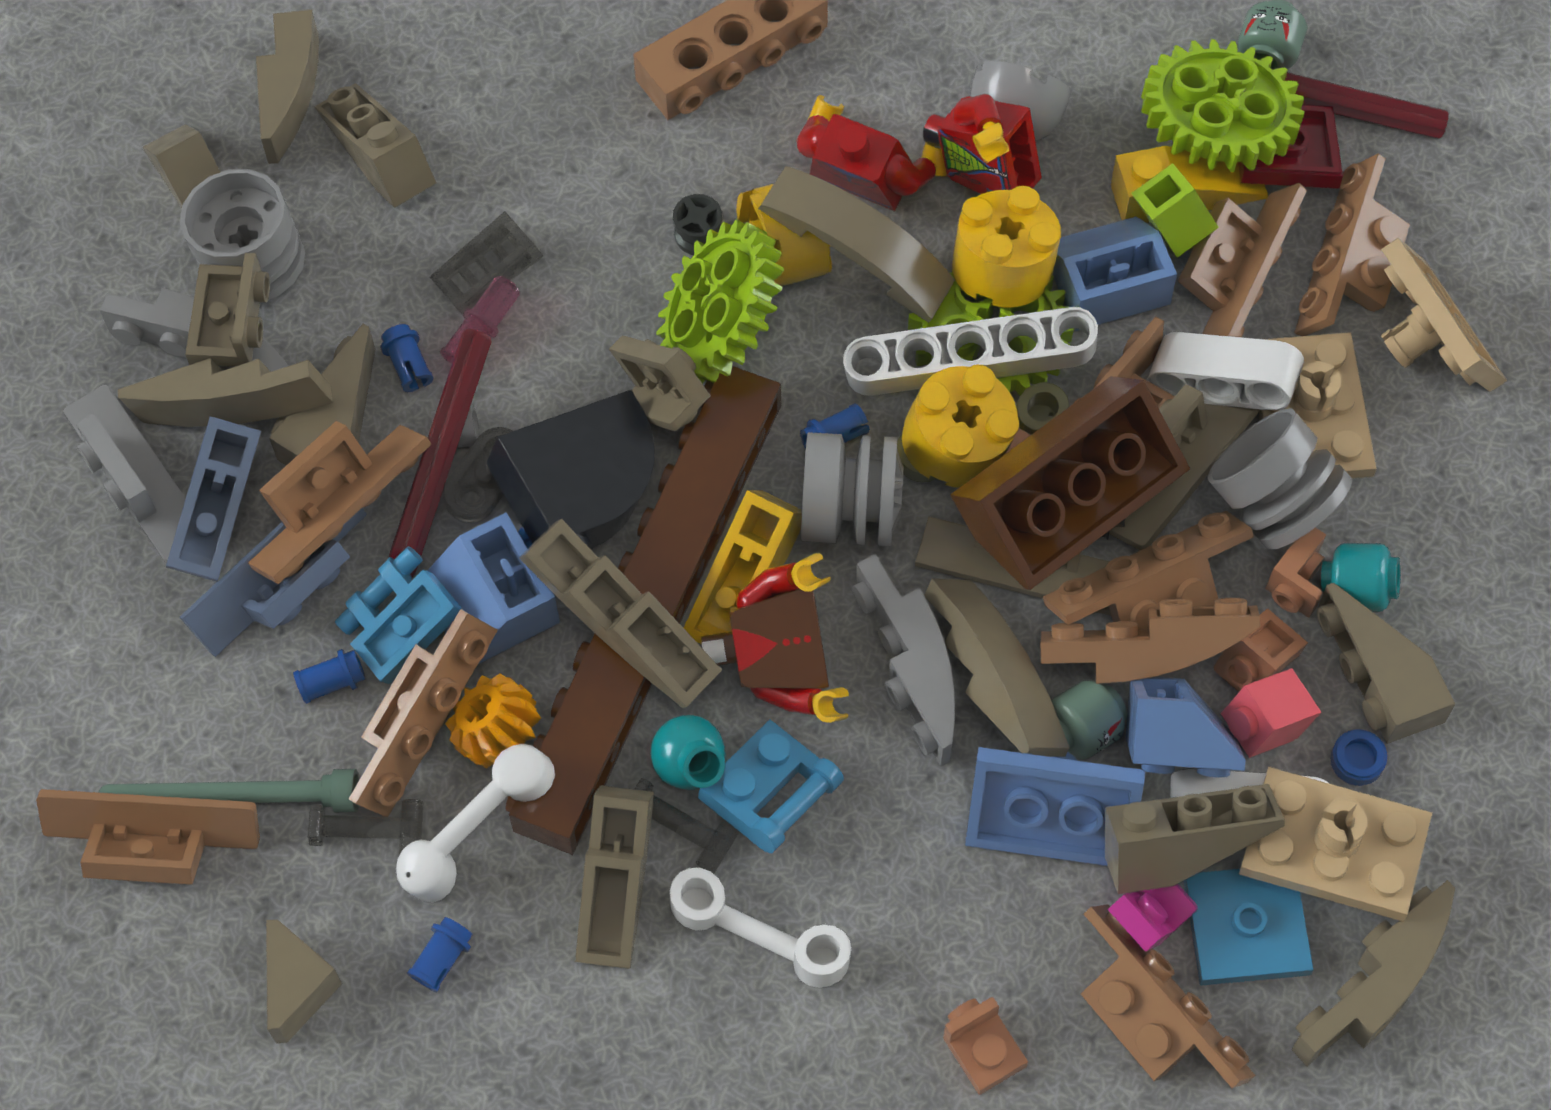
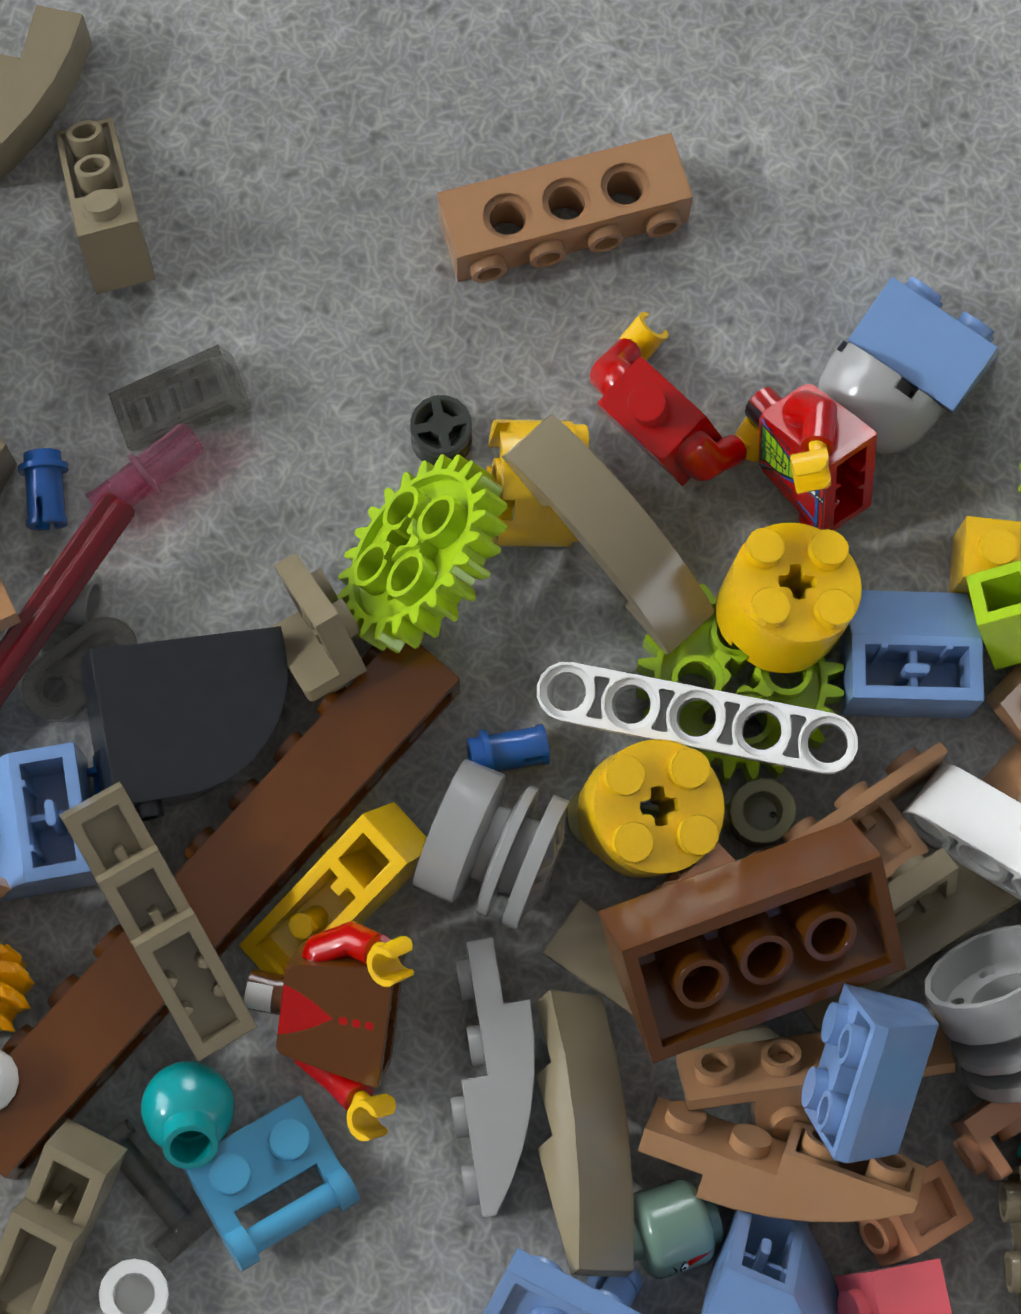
camera: 15 degrees right, 10 degrees up
(1042, 42) = (925, 343): none -> medium blue slope
(1189, 540) = (867, 1073): none -> medium blue slope

